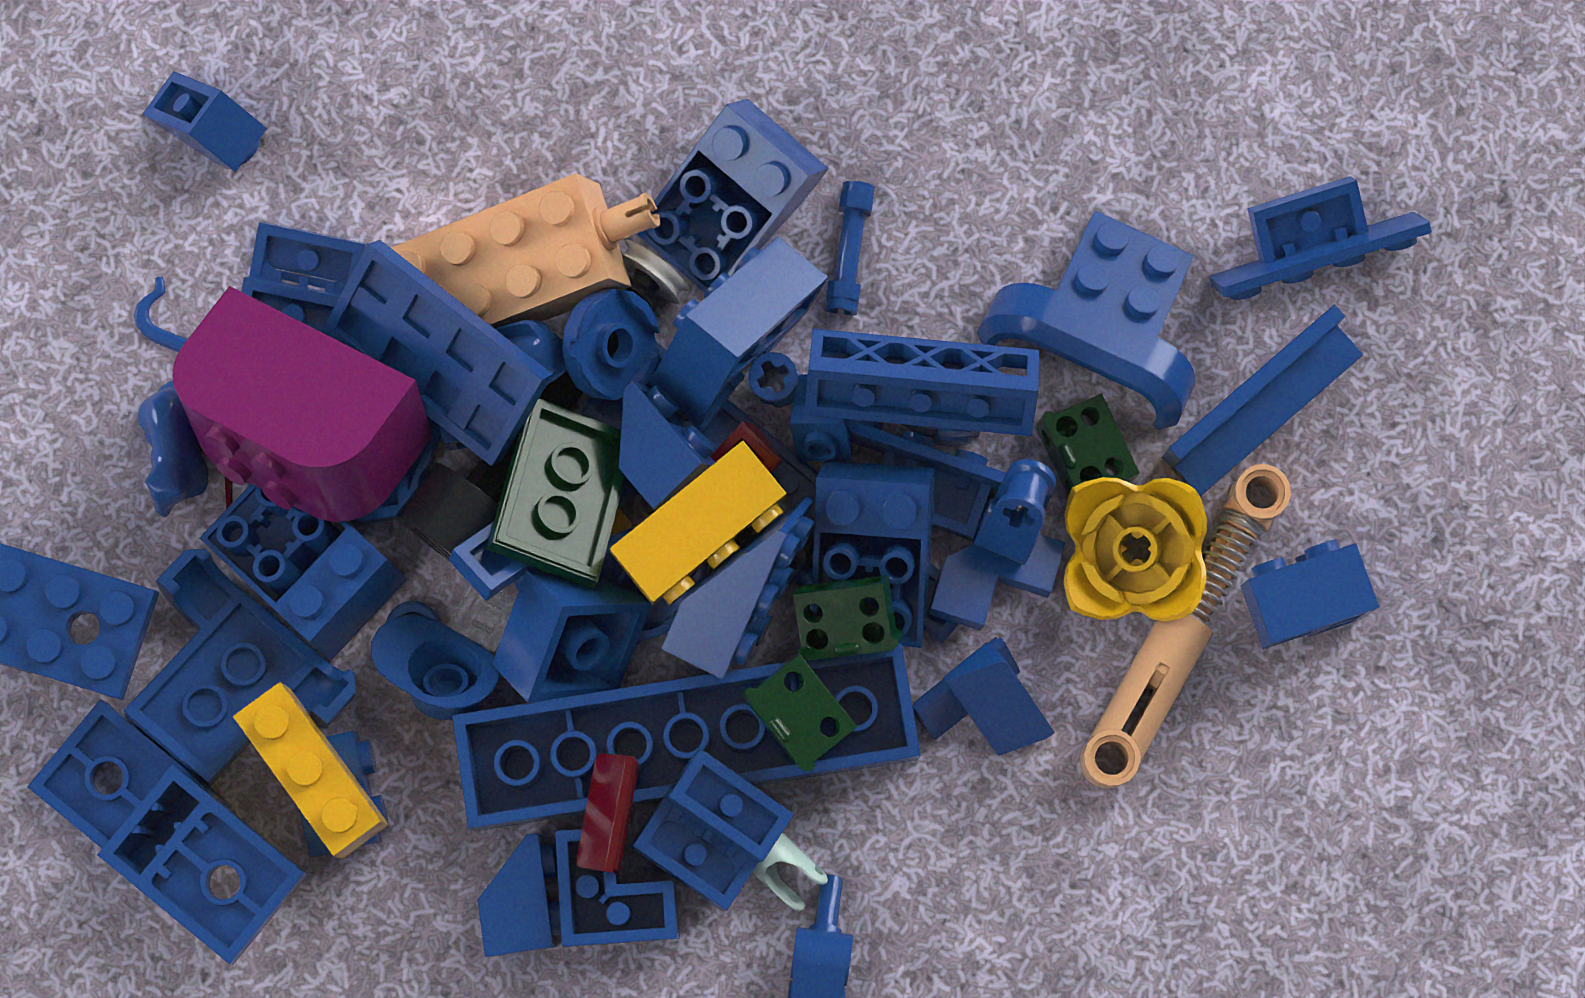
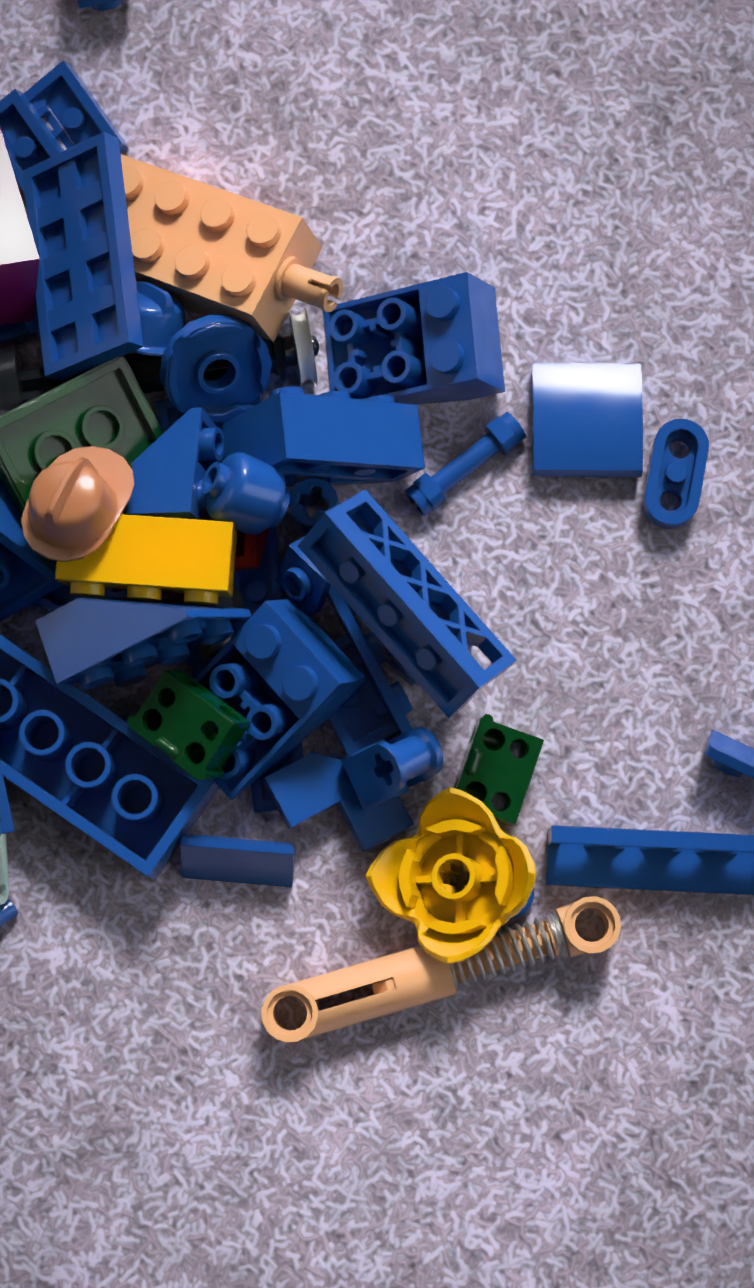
camera: 45 degrees right, 0 degrees up
(615, 532) = (76, 503): none -> nougat piece
(727, 412) = (245, 493): none -> blue head
(797, 714) = (81, 759): dark green piece -> none
(907, 134) = (587, 420): none -> blue slope
(997, 701) = (247, 891): blue slope -> none
(1010, 115) = (675, 475): none -> blue plate
(1107, 314) = (605, 687): blue piece -> none
(1311, 596) = (547, 1034): blue brick -> none

